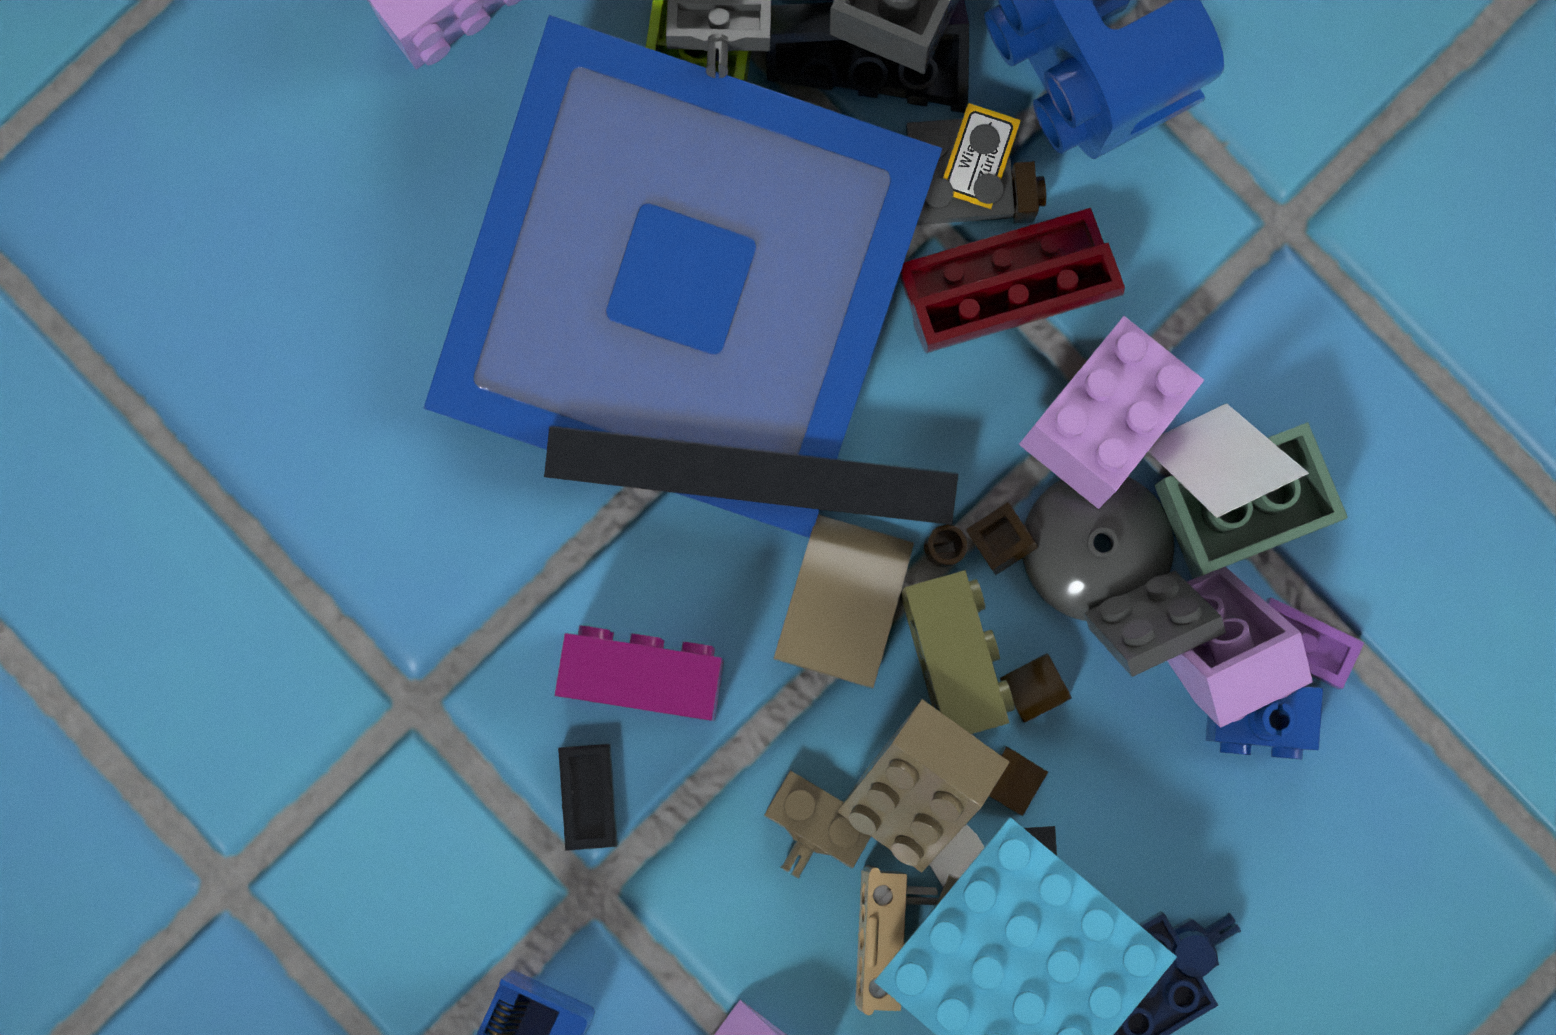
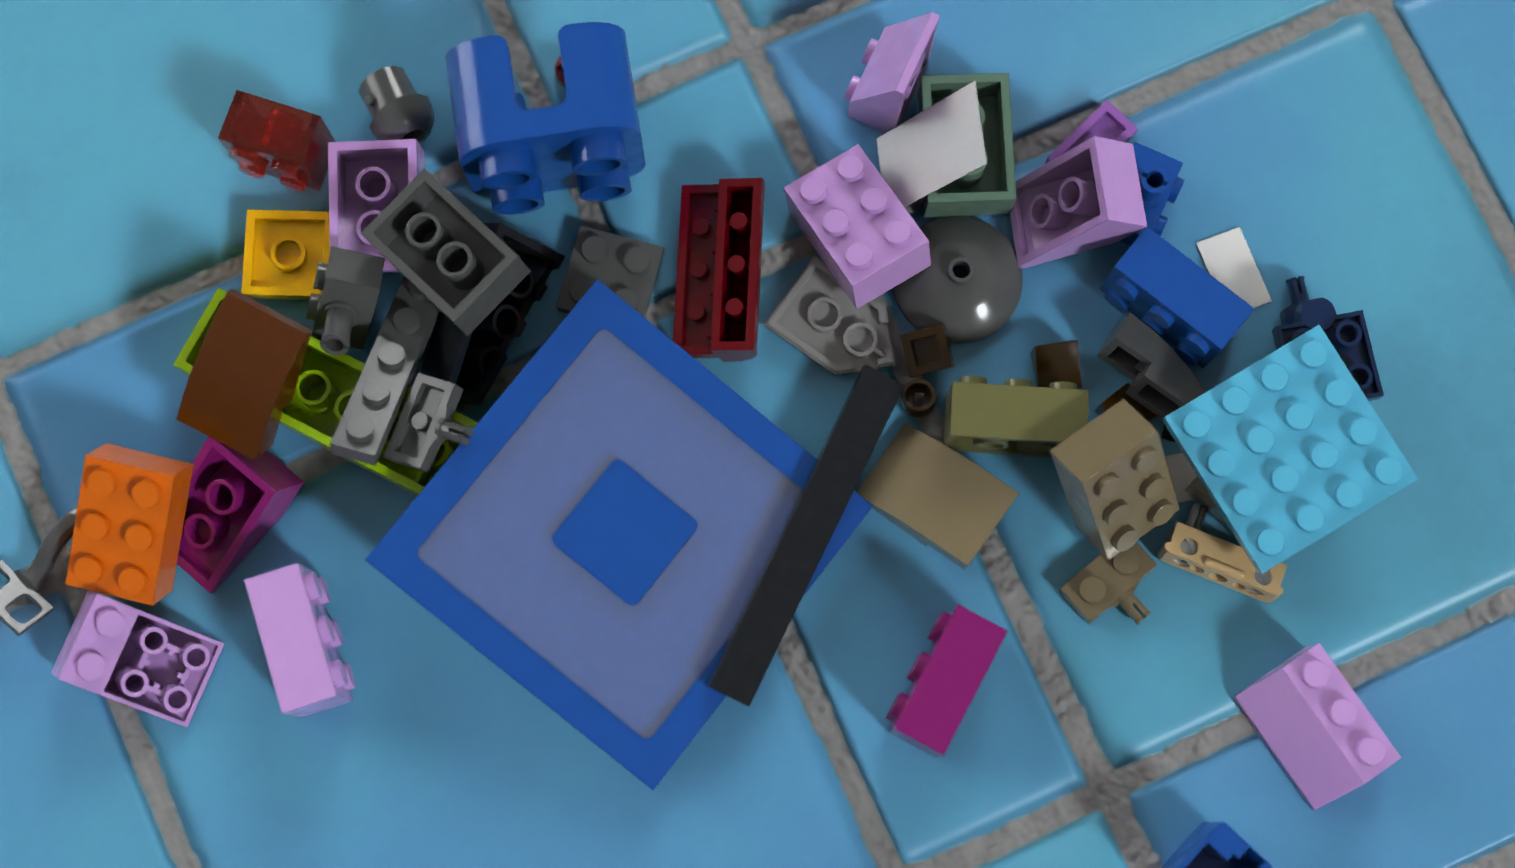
camera: 75 degrees left, 5 degrees down
(587, 797) = (1026, 765): black tile -> none
(966, 164) = (611, 268): sticker -> none
(987, 422) = (828, 327): none -> light grey tile
(1028, 192) = (650, 229): dark brown plate -> none
(1064, 803) = (1156, 371): none -> dark grey slope
(1154, 623) = (1041, 251): dark grey plate -> none
(1156, 789) = (1175, 298): none -> blue brick
(1219, 851) = (1233, 265): none -> white sticker
(1300, 391) = (892, 72): none -> lavender slope

